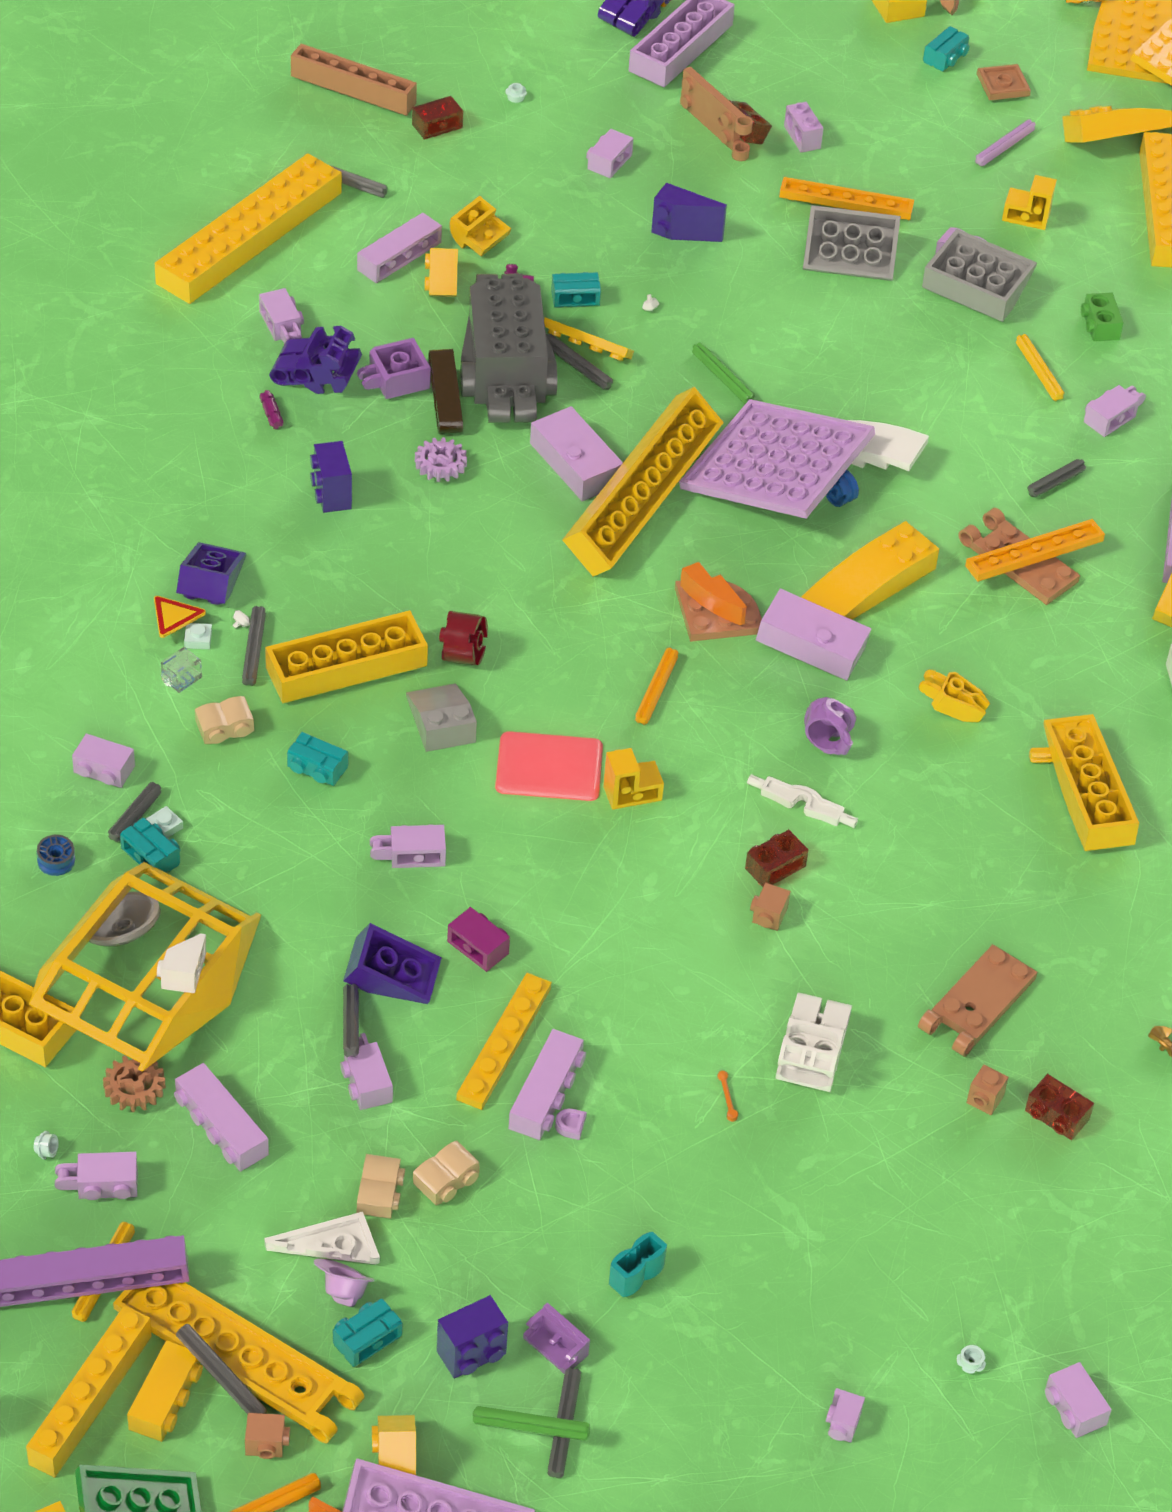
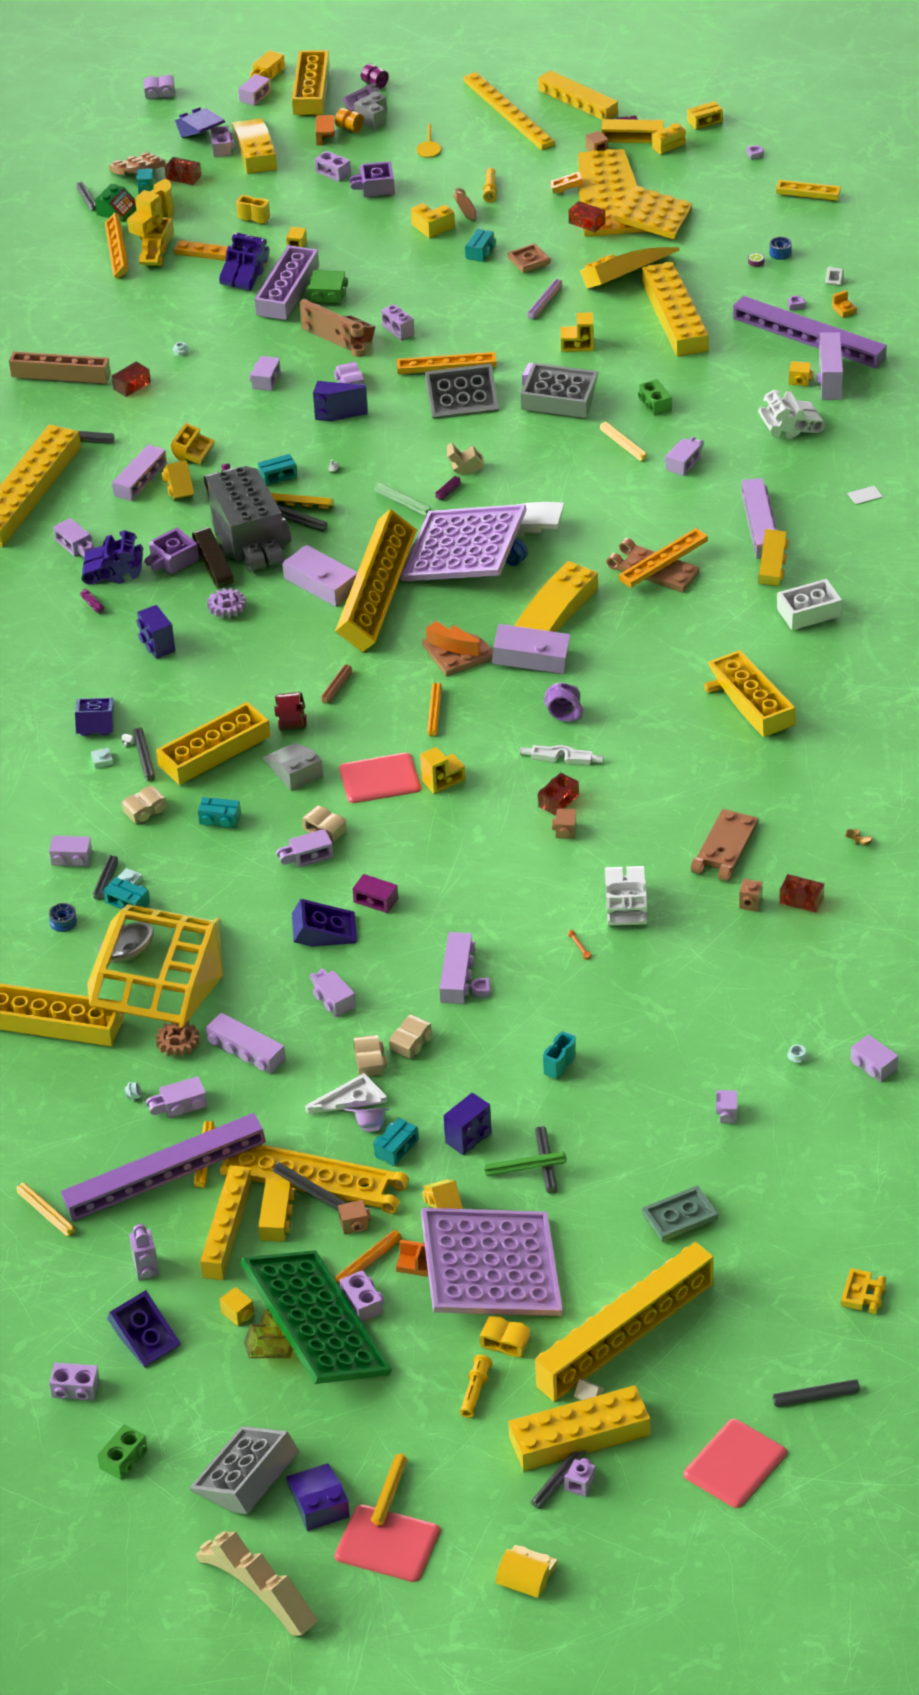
camera: 10 degrees left, 5 degrees down
(174, 615) = (81, 748): piece -> none
(181, 669) = (100, 781): clear brick -> none
(183, 965) = (186, 953): white slope -> none
(350, 1020) = (310, 962): dark grey axle -> none
(447, 809) = (321, 818): none -> tan brick
(503, 1041) = (416, 951): yellow plate -> none
(541, 613) = (336, 683): none -> nougat axle
(556, 1338) = (522, 1112): medium lavender hinge -> none
(715, 184) = (349, 374): none -> lavender brick
(730, 56) = (327, 286): none -> bright green brick
(787, 372) = (448, 487): none -> magenta axle
(822, 343) = (465, 462): none -> tan brick
(954, 696) = (641, 663): yellow hinge -> none
(1056, 478) = (662, 508): dark grey axle -> none
(1096, 45) = (586, 216): none -> clear red brick

